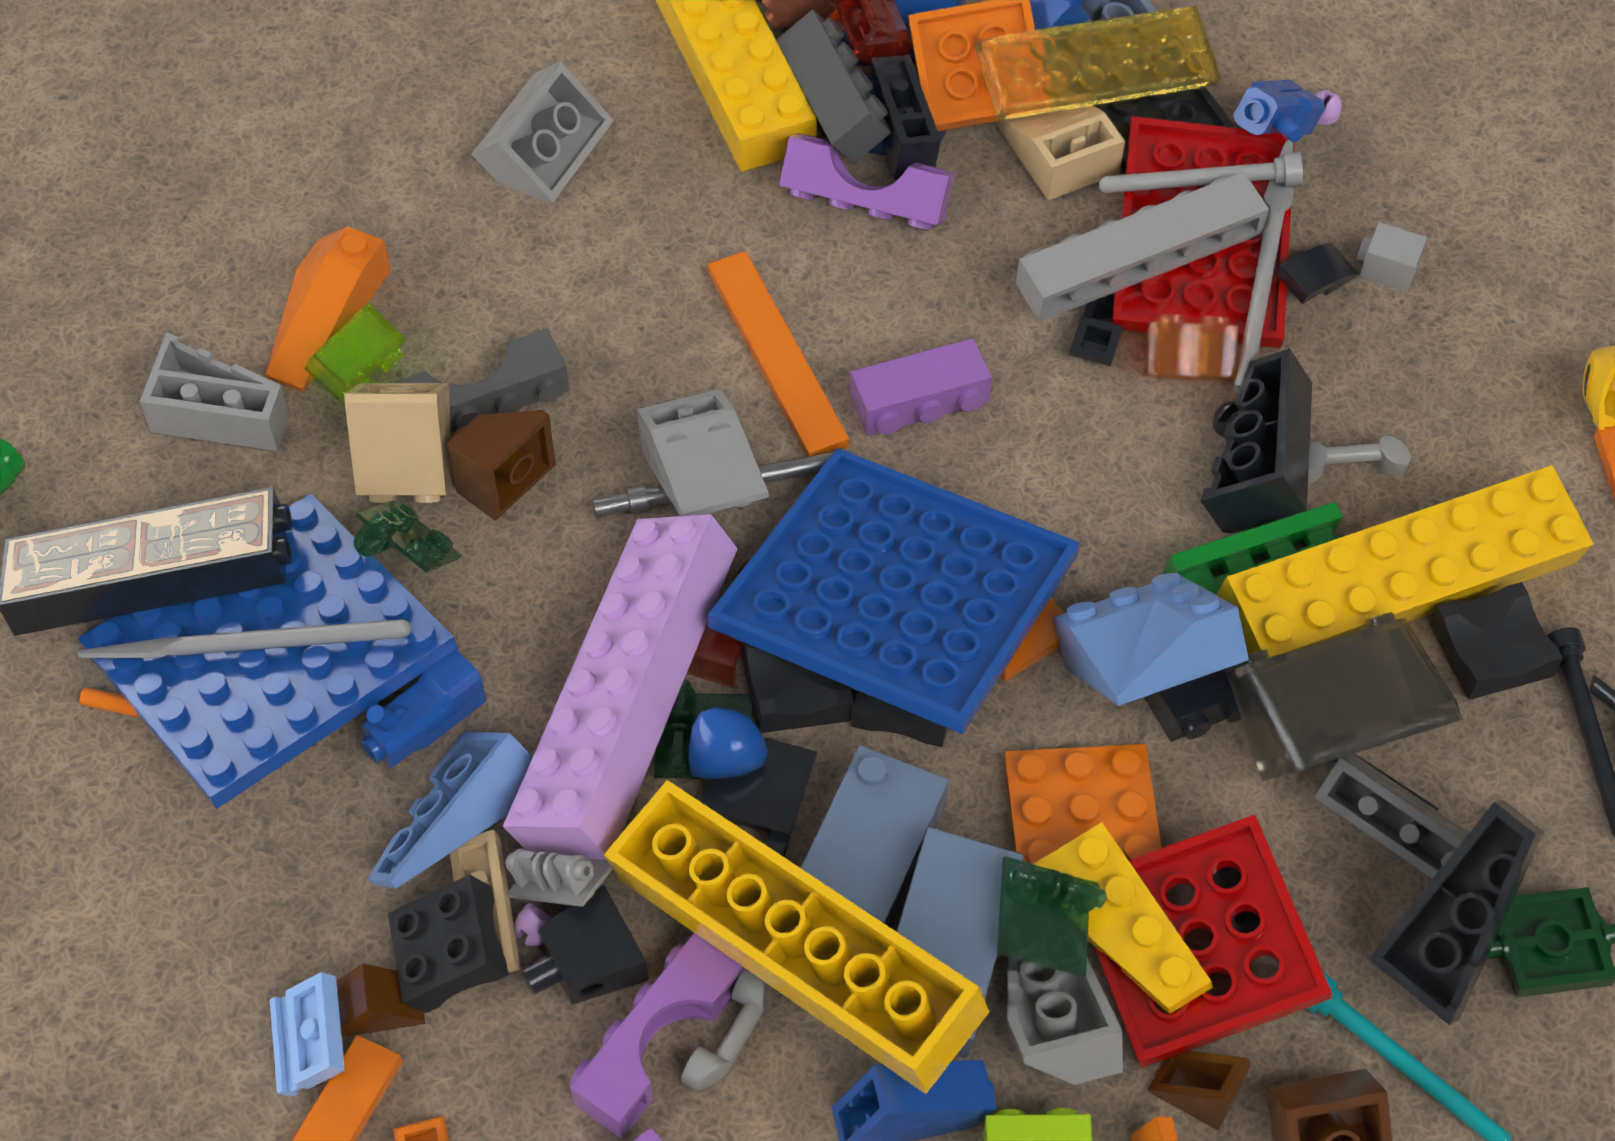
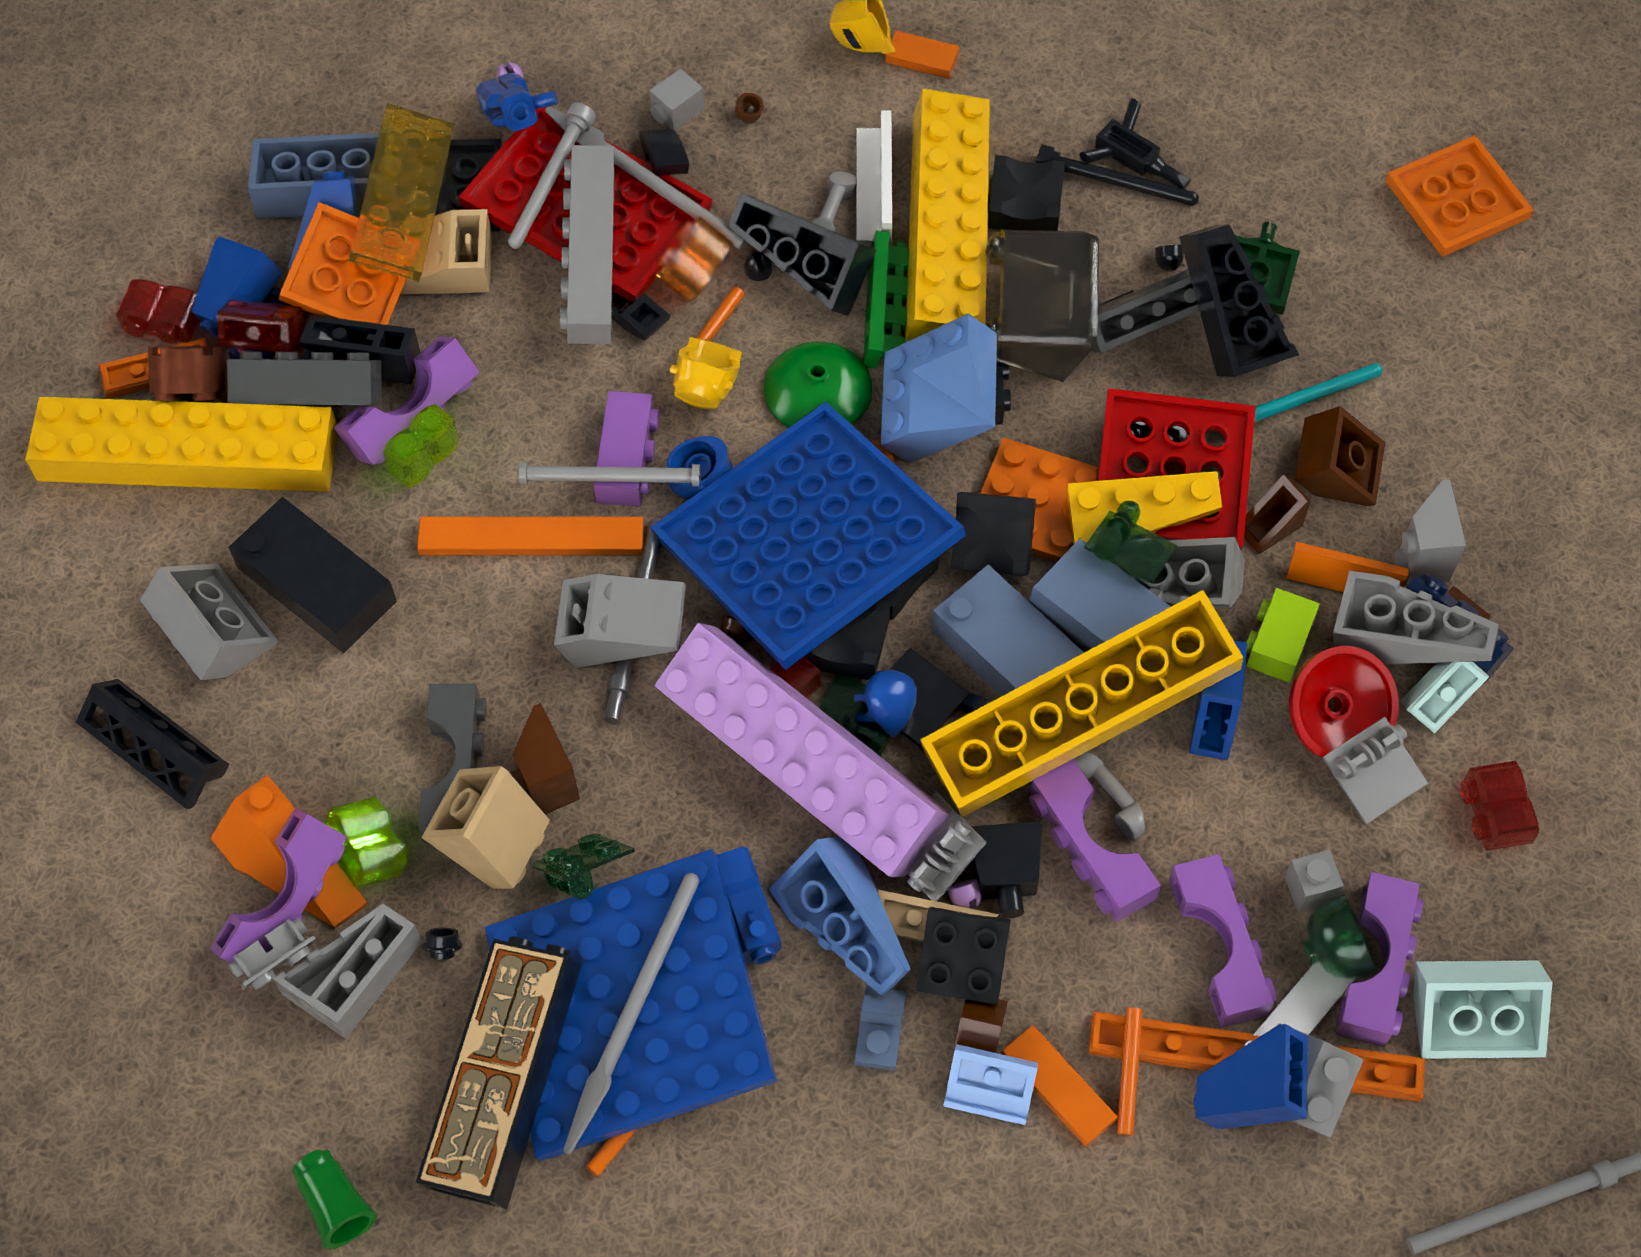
camera: 65 degrees left, 5 degrees up
(176, 316) = (287, 947): none -> light grey hinge
(278, 464) = (442, 943): none -> black plate
(307, 298) = (308, 852): none -> medium lavender arch
(340, 901) = (880, 1029): none -> sand blue slope
(398, 150) = (159, 732): none -> black fence
(629, 191) = (313, 574): none -> black brick
(821, 214) = (416, 449): none -> clear neon green brick
(907, 451) = (609, 474): none -> light grey bar
(939, 459) = (703, 450): none -> blue piece
(998, 773) = (996, 533): none -> black brick
(1053, 417) = (705, 373): none -> yellow helmet
(1112, 554) = (794, 391): none -> green dish
(1121, 409) = (721, 314): none -> orange bar
(1416, 485) = (874, 180): none -> white fence
(1430, 320) = (743, 104): none -> reddish brown hinge

